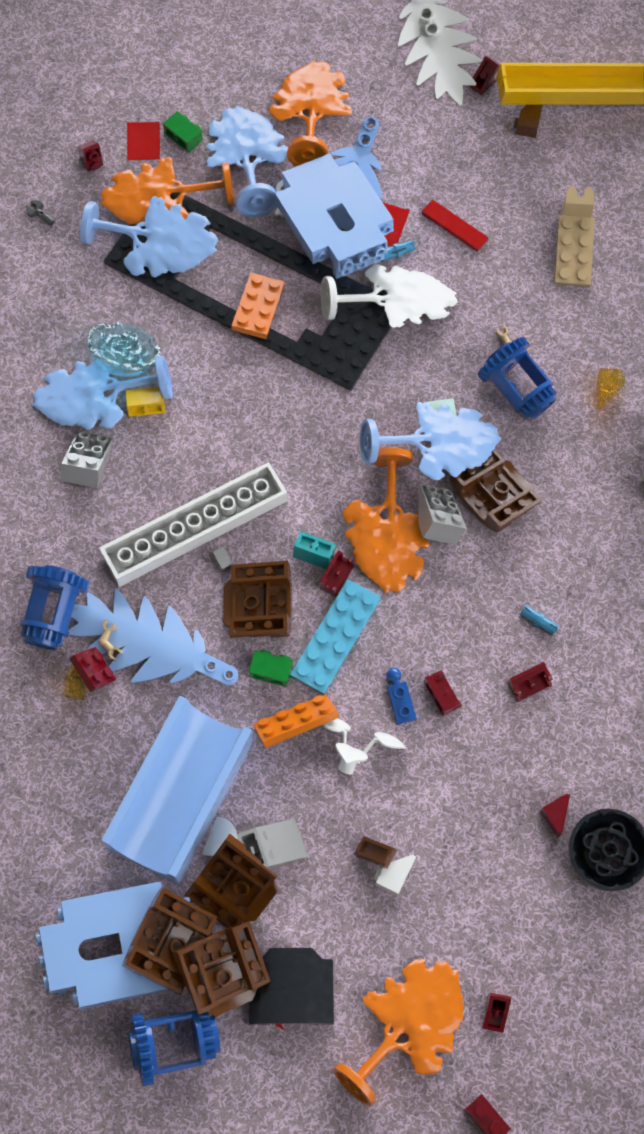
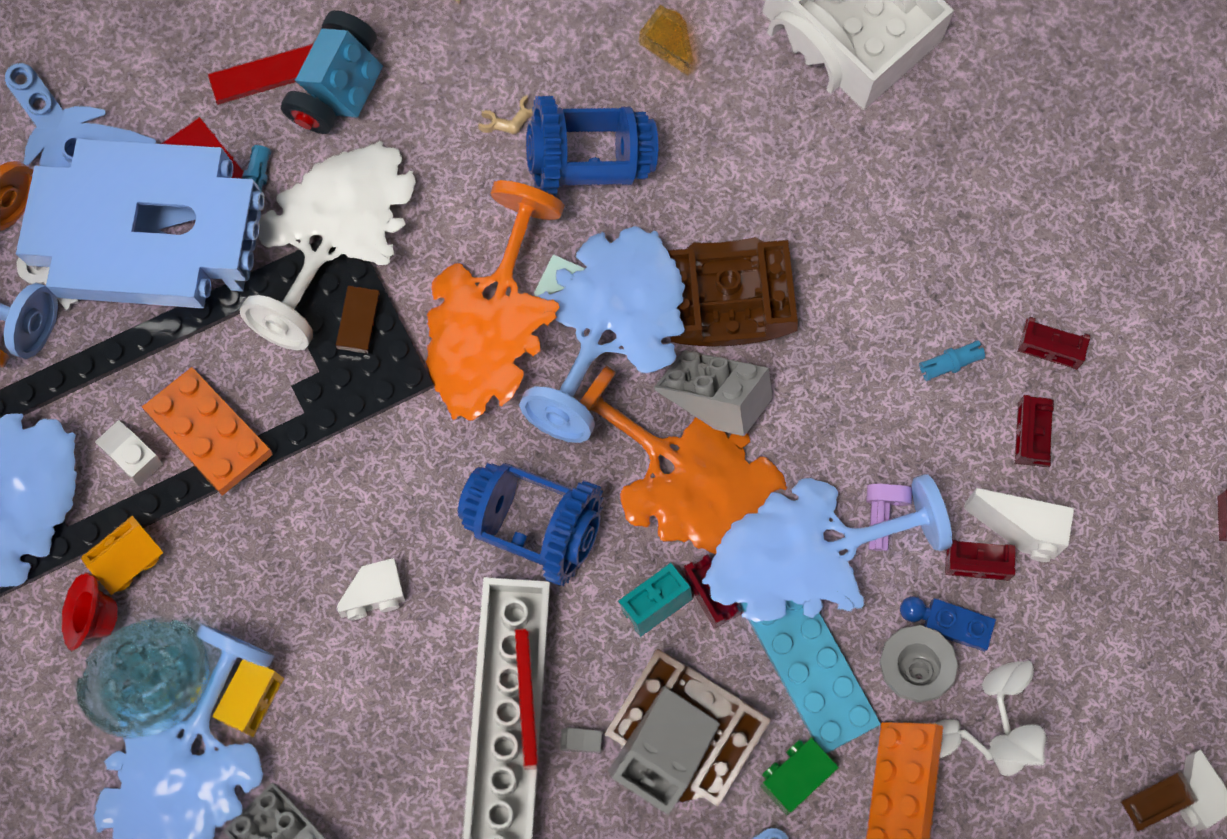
camera: 60 degrees left, 5 degrees up
(139, 311) = (87, 612): none -> red hat
(174, 307) = (122, 556): none -> light orange brick
(220, 513) = (526, 699): none -> red tile
(224, 282) = (129, 452): none -> white slope
(232, 421) = (372, 588): none -> white slope
(239, 592) = (664, 750): none -> light grey slope
(316, 484) = (569, 533): none -> blue piece
(357, 334) = (357, 319): none -> reddish brown tile
(365, 685) = (922, 653): none -> light grey hat
(375, 599) = (785, 557): none -> light blue plant
(391, 390) = (481, 337): none -> orange plant
(440, 626) = (880, 498): none -> lavender piece
(472, 249) = (335, 74): none -> dark azure brick
(476, 704) = (1027, 523): none -> white slope
(585, 664) = (1053, 344): none -> dark red hinge

